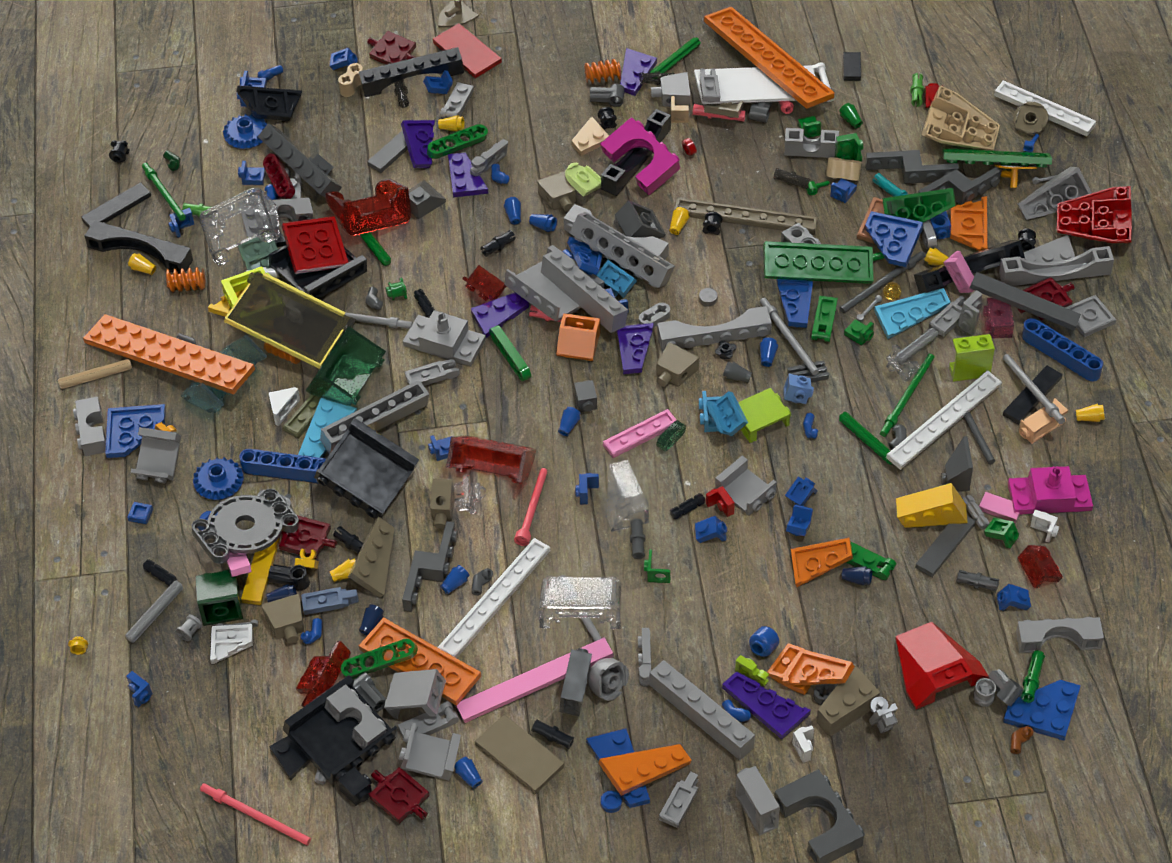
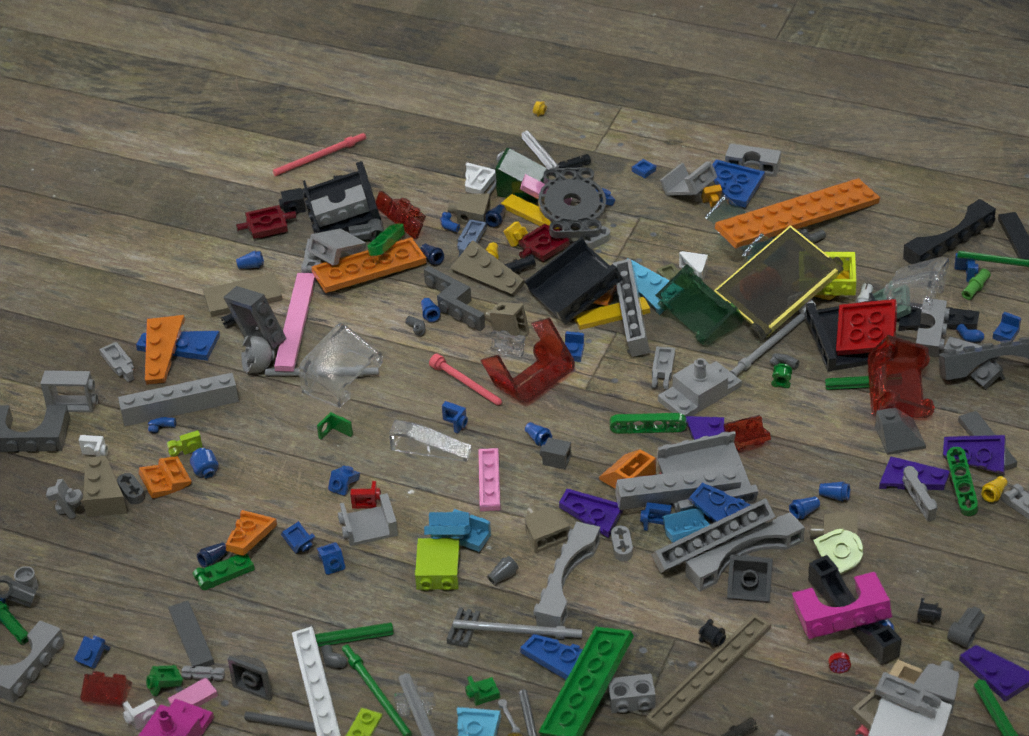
camera: 120 degrees right, 10 degrees down
(94, 374) = (814, 173): tan axle -> none
(140, 263) = (929, 229): yellow cone -> none
(140, 688) = (474, 126): blue bracket -> none
(185, 280) = (887, 249): orange piece -> none
(218, 479) = (645, 216): blue gear -> none
(279, 176) = (976, 337): dark red beam -> none
(280, 465) = (632, 243): blue beam -> none
(290, 576) = (505, 221): black piece -> none
(424, 302) = (754, 391): black axle -> none
(429, 754) = (284, 243): light grey panel -> none
(494, 598) = (395, 330): white tile -> none
(497, 175) = (896, 498): blue arm -> none
(497, 243) = (797, 464): black pin -> none
(589, 137) = (909, 591): tan wing -> none
(602, 71) = (1005, 634): orange piece -> none
(637, 538) = (374, 429): dark grey pin -> none
(645, 657) = (258, 389): light grey hinge -> none
(647, 77) = (967, 679): clear smoke pin -> none
(671, 435) = (466, 493): clear green beam -> none
(679, 219) = (735, 610): yellow cone -> none
(687, 506) = (383, 477): black axle -> none
(708, 297) = (617, 593): flat silver tile -> none
(725, 350) = (538, 576): black plate -> none
(768, 350) = (511, 605): blue cone -> none
(771, 709) = (144, 443): dark purple wing -> none
(798, 389) = (442, 599): medium blue brick -> none
(807, 424) = (398, 594): blue arm -> none
(817, 669) = (142, 474): orange wing -> none
(824, 318) = (519, 668): green plate -> none
(932, 507) = (223, 629): yellow wedge -> none
(934, 663) = (80, 564): red wedge -> none
(977, 580) = (132, 635): dark grey pin -> none

